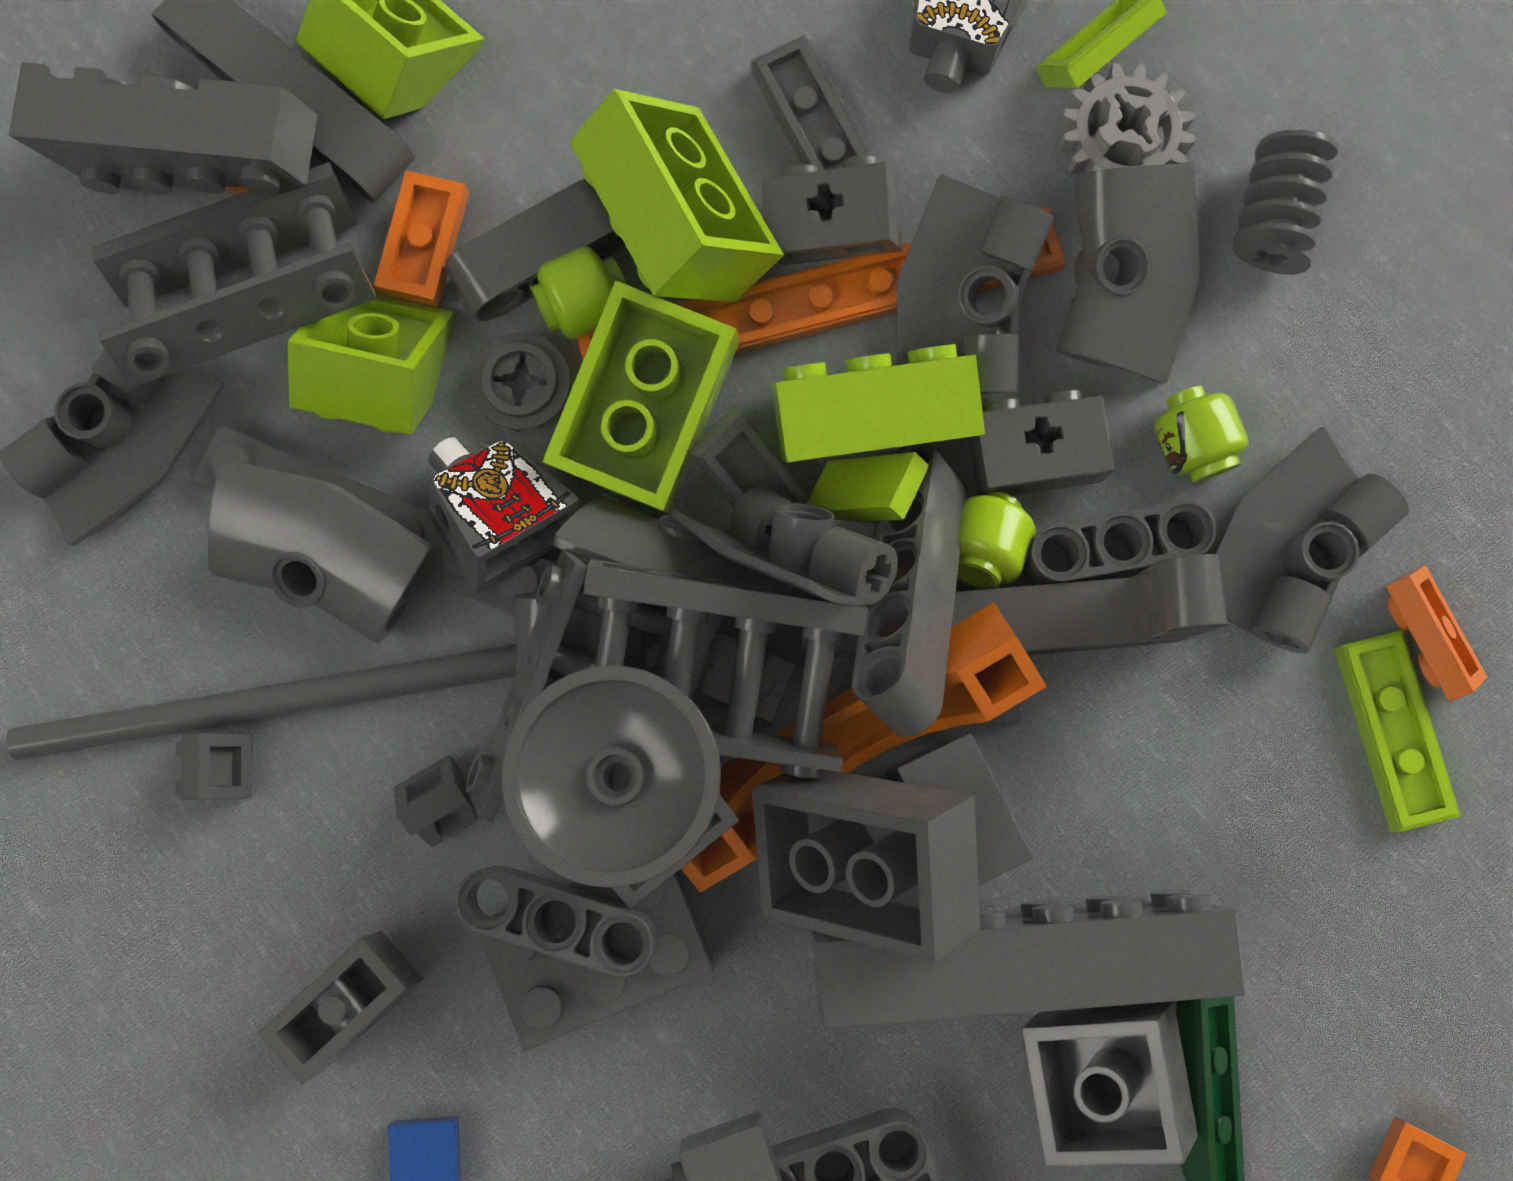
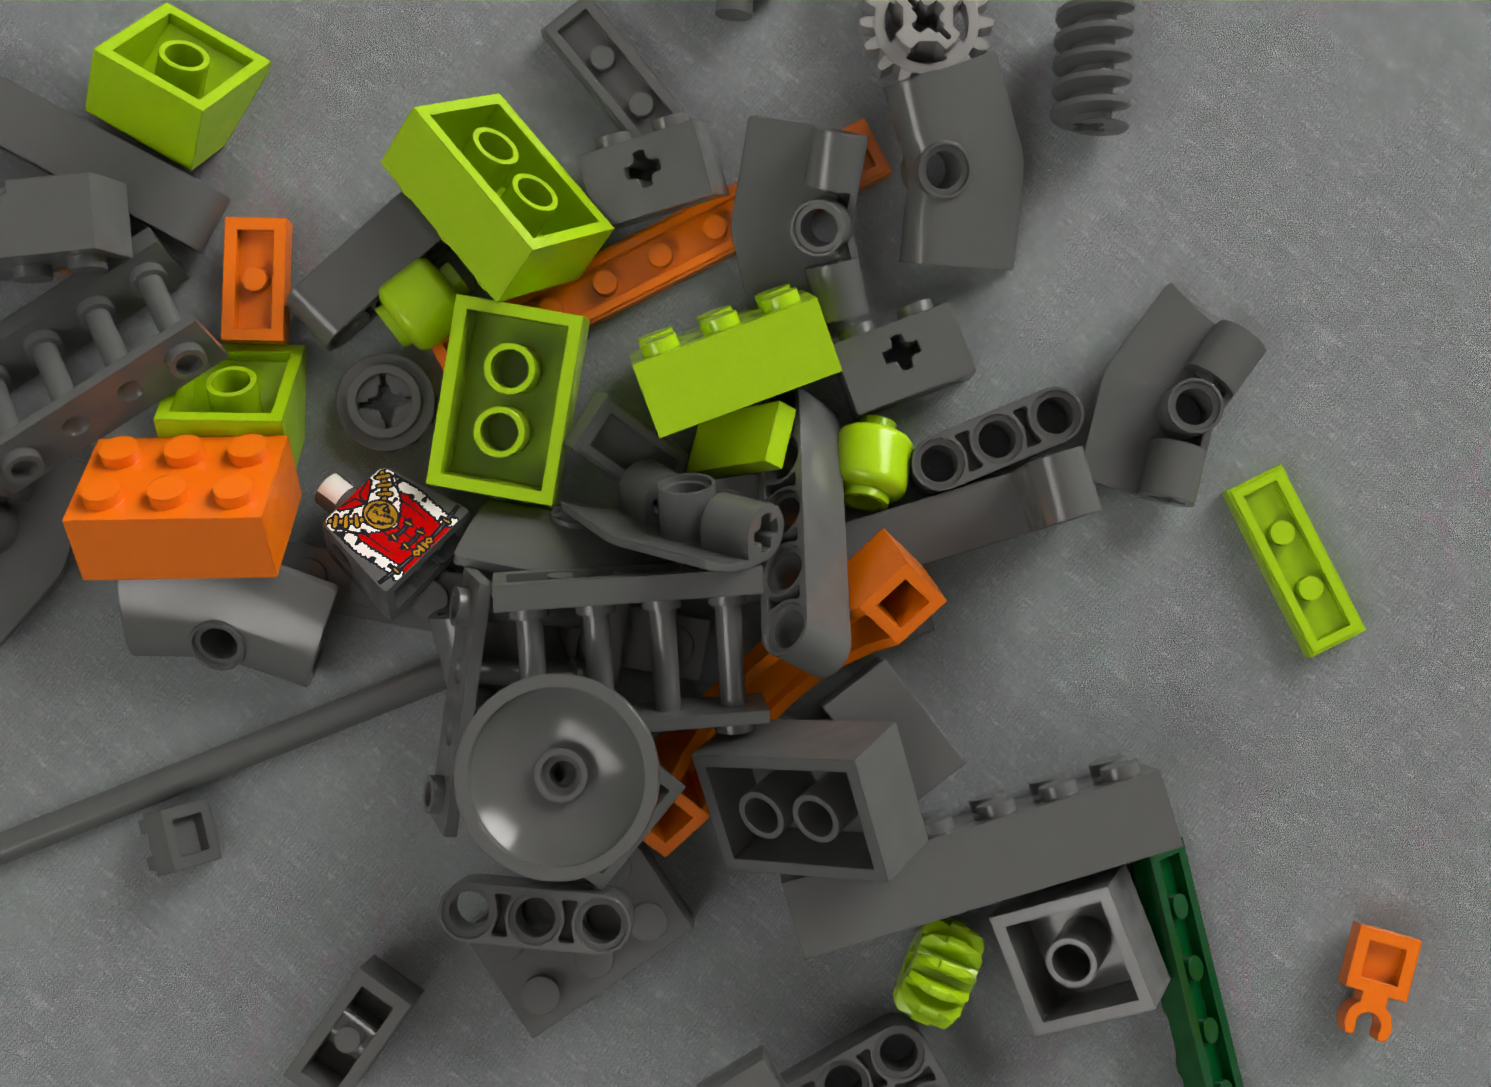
camera: 10 degrees left, 5 degrees up
(296, 433) = (184, 508): none -> orange brick
(432, 796) = (392, 821): dark grey tile -> none
(957, 1075) = (938, 972): none -> lime gear
(1201, 434) = (1054, 315): lime head -> none
(1445, 654) = (1324, 475): orange plate -> none

